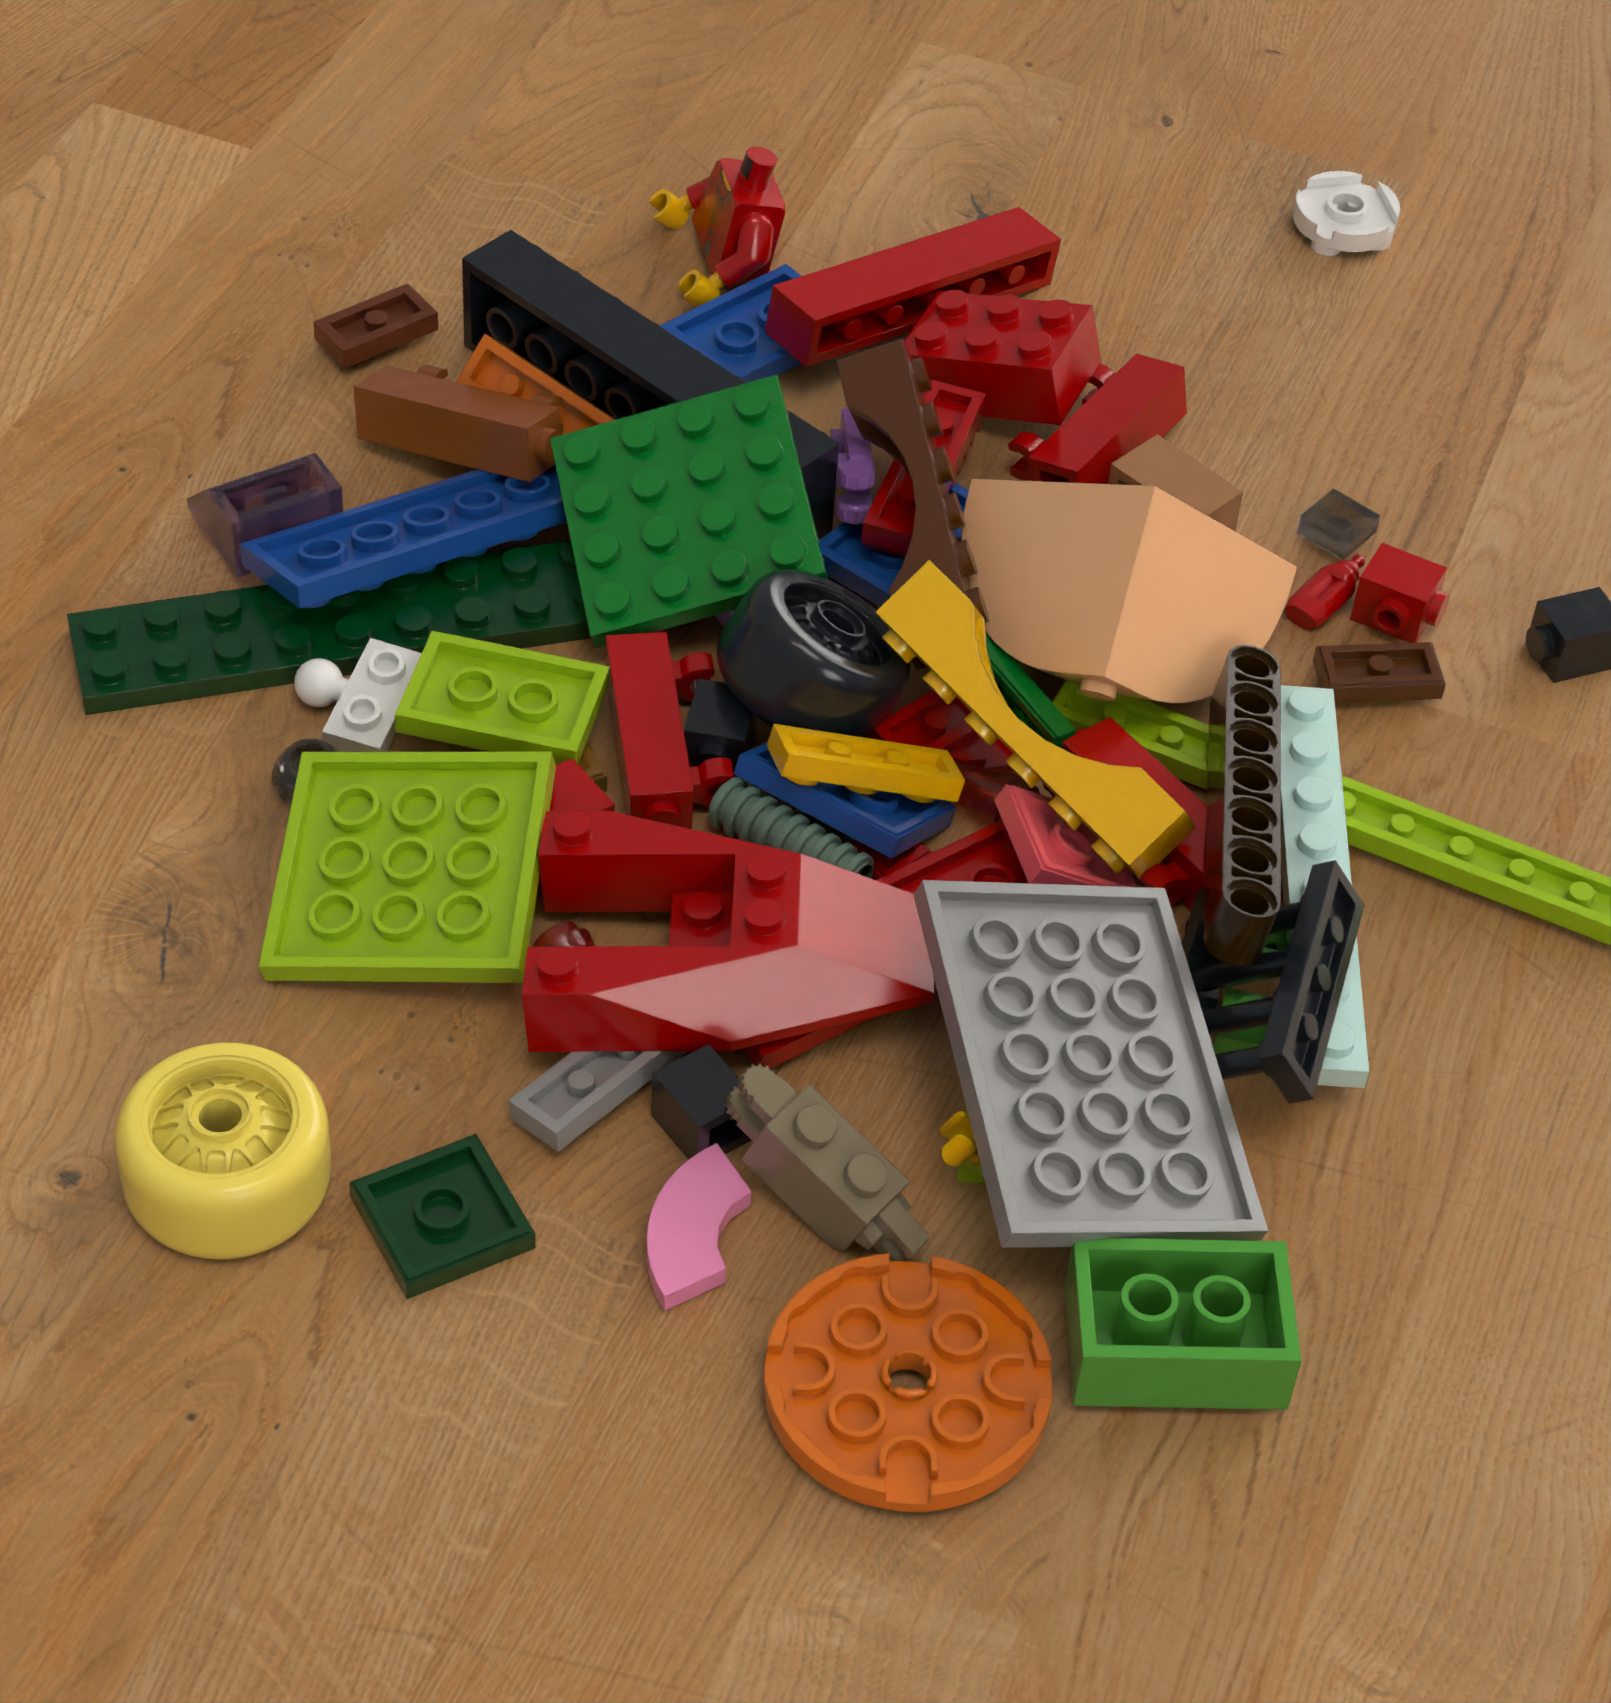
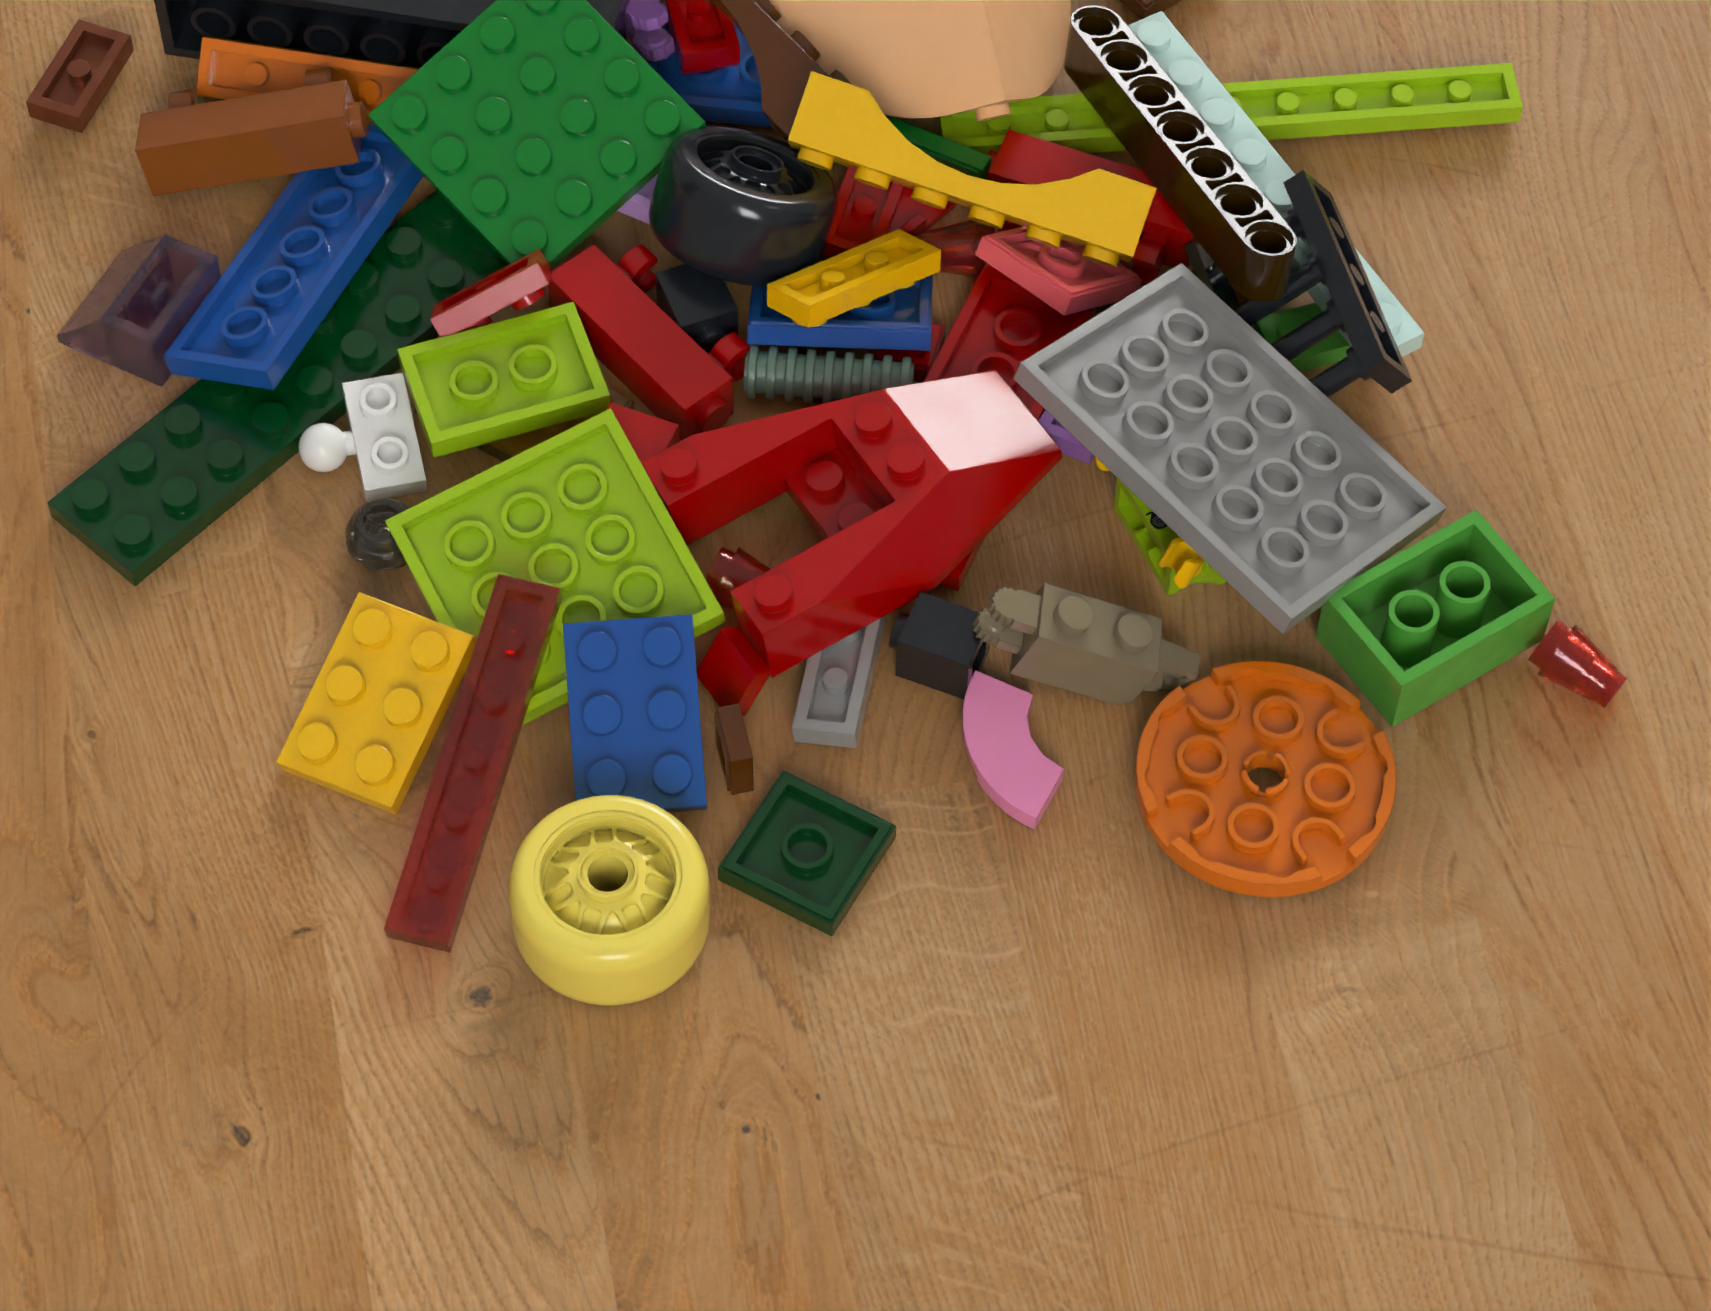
camera: 30 degrees left, 10 degrees up
(181, 895) = (377, 703): none -> yellow plate
(207, 979) = (473, 764): none -> clear red plate
(381, 1014) = (636, 711): none -> blue plate
(445, 1091) = (734, 749): none -> reddish brown tile
(498, 1030) = (733, 670): none -> red tile
(569, 628) = (515, 284): none -> plate
(1299, 1445) = (1577, 664): none -> clear red cone

